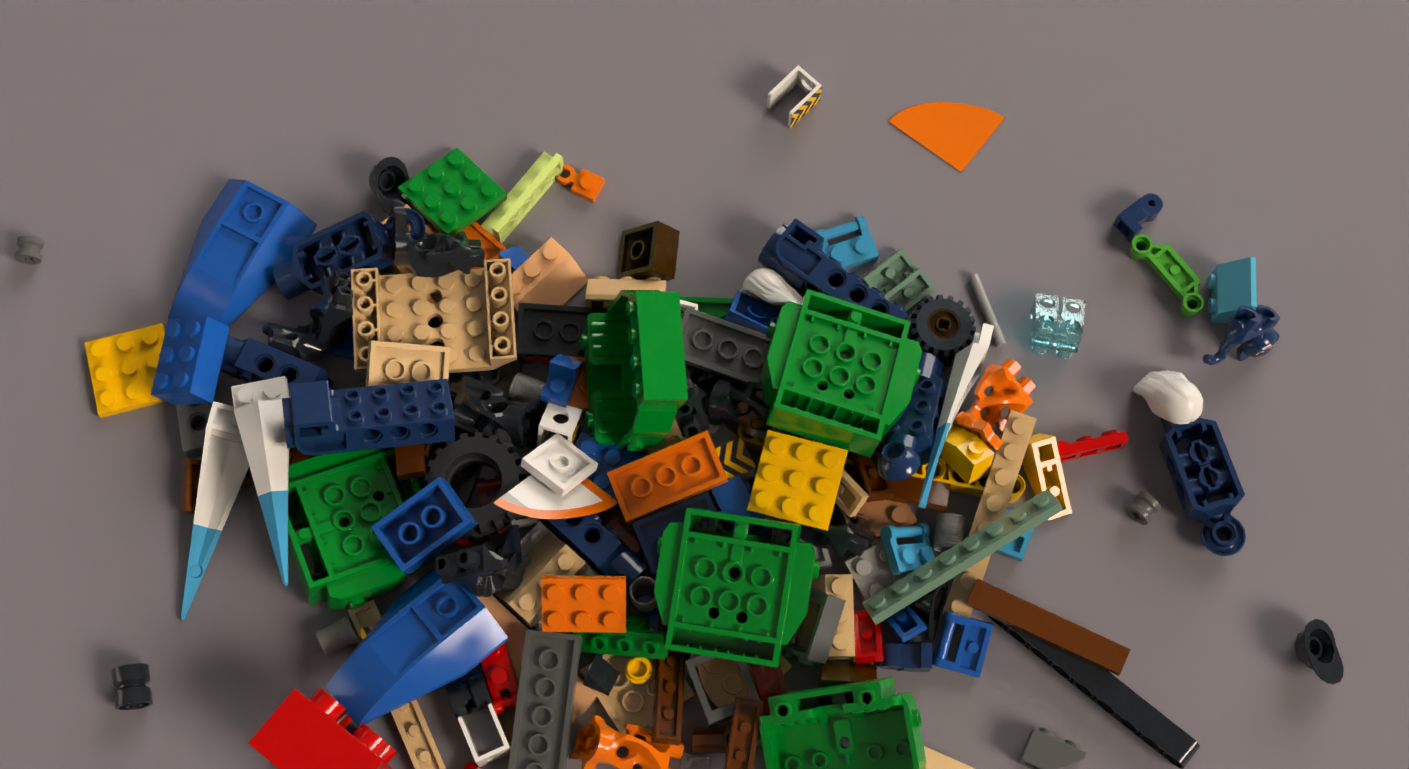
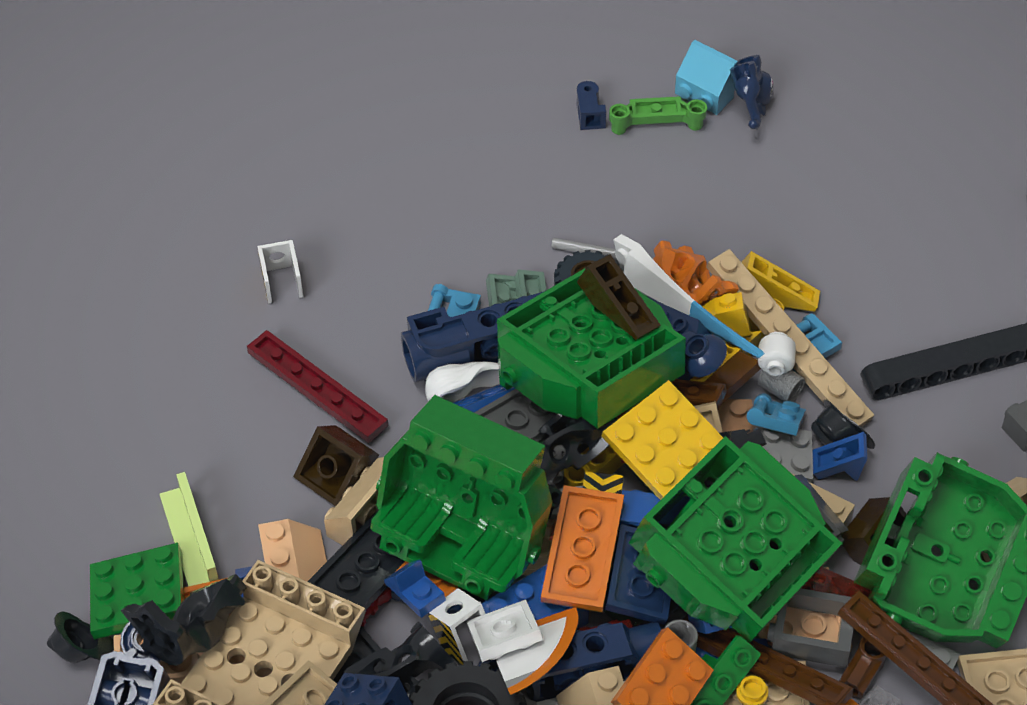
camera: 55 degrees left, 20 degrees down
(526, 388) = (394, 632): light grey piece -> none
(584, 185) = (219, 481): orange plate -> none
(710, 194) = (317, 386): none -> dark red plate
(867, 639) = (847, 488): red plate -> none
(879, 369) = (617, 298): none -> dark brown slope
(907, 657) = (877, 473): dark blue leg -> none
(949, 129) = (402, 189): orange sticker -> none
(959, 515) = (779, 353): none -> white head
(962, 556) = (816, 375): sand green plate -> none
(971, 645) = (898, 420): blue plate -> none
(1048, 627) = (918, 351): reddish brown tile -> none
(1056, 326) = (646, 205): clear light blue hips -> none
(1089, 446) = (775, 229): red plate -> none
(1143, 508) = (851, 238): dark grey wheel -> none
(1171, 396) = (768, 161): white hair -> none
(1205, 481) = (851, 181): dark blue brick -> none

